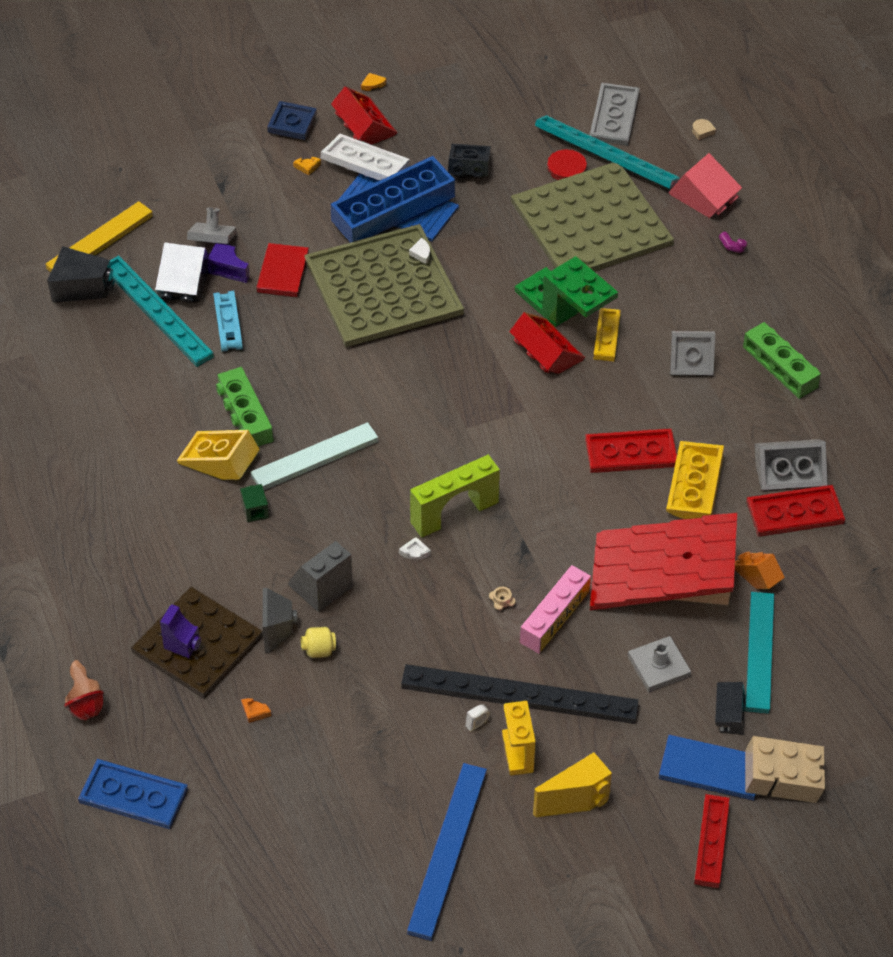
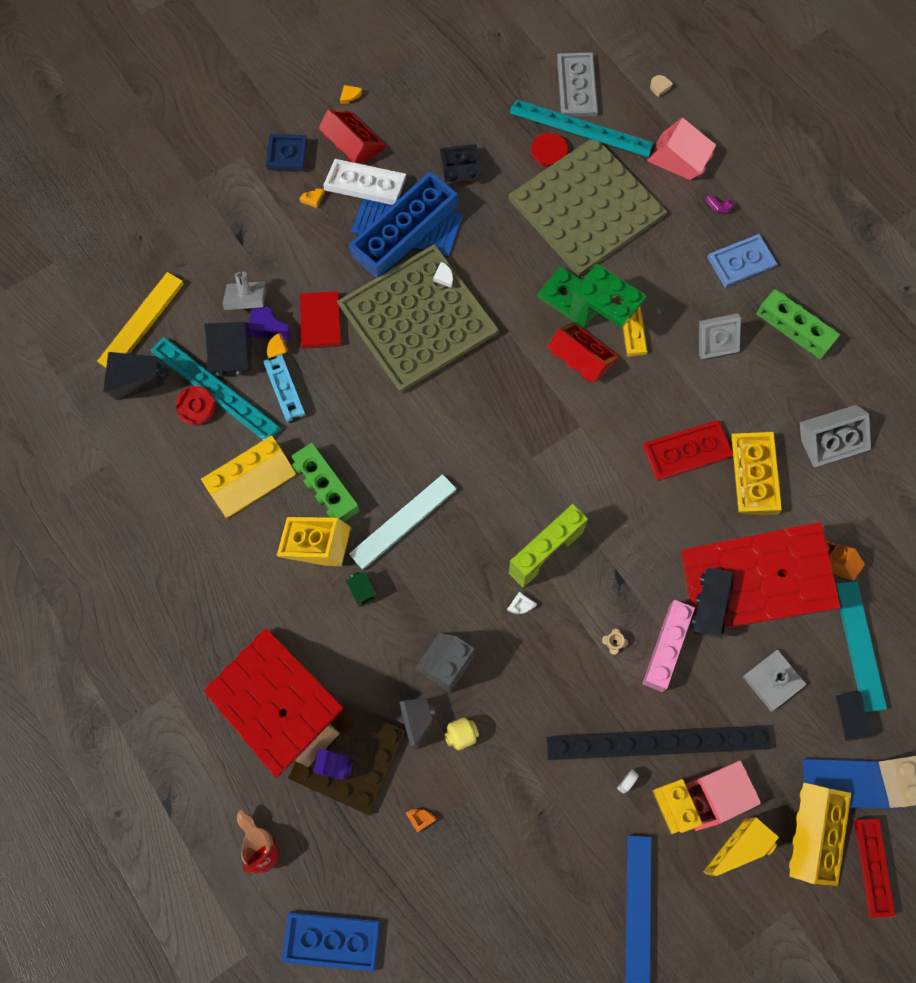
camera: 10 degrees left, 20 degrees up
(133, 319) = (195, 405): none -> red tile
(141, 572) = (275, 704): none -> red piece
(169, 387) = (248, 477): none -> yellow slope
(230, 282) = (276, 346): none -> light orange tile
(565, 740) = (722, 795): none -> coral slope
(611, 574) = (713, 602): none -> black brick
(663, 796) = (820, 835): none -> yellow slope
(741, 297) = (742, 260): none -> medium blue tile
(795, 510) = (850, 483): red tile -> none

